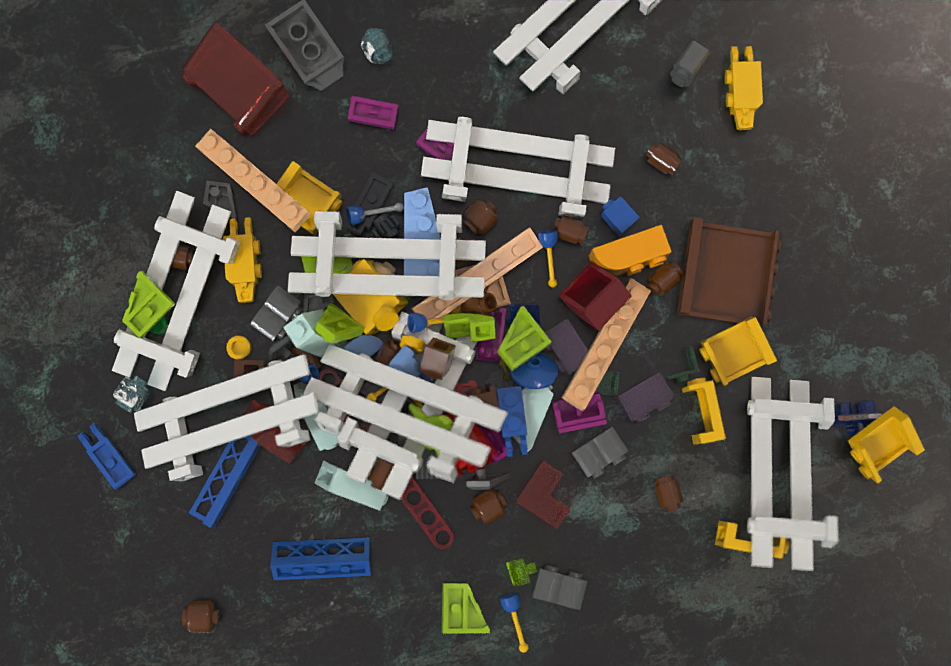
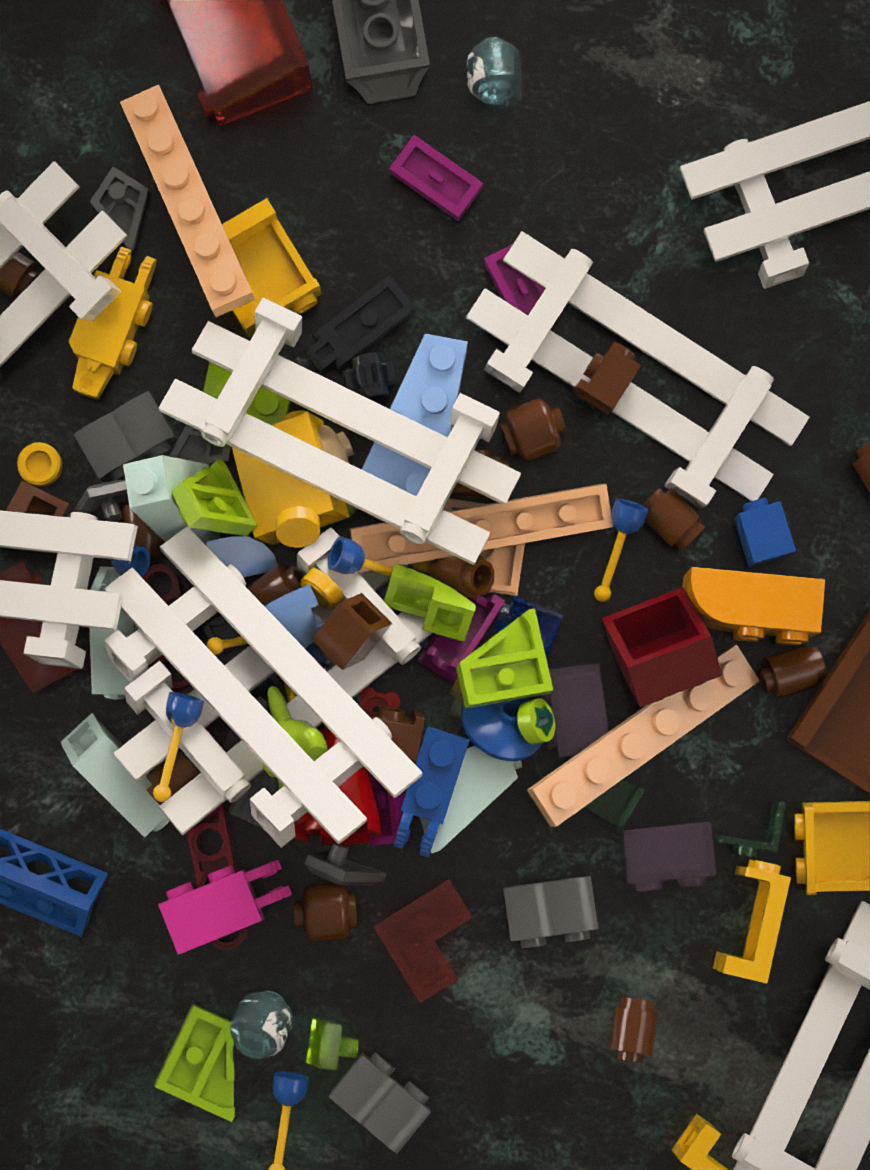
camera: 25 degrees right, 0 degrees up
(356, 214) = (330, 334): hinge -> none
(372, 438) = (182, 712): none -> hinge
(433, 528) = (218, 907): none -> dark pink hinge
(482, 577) = (261, 1024): none -> clear light blue head
(506, 173) = (607, 377): none -> reddish brown brick
(550, 361) = (536, 721): none -> lime tile
(571, 418) = (528, 831): magenta hinge -> none

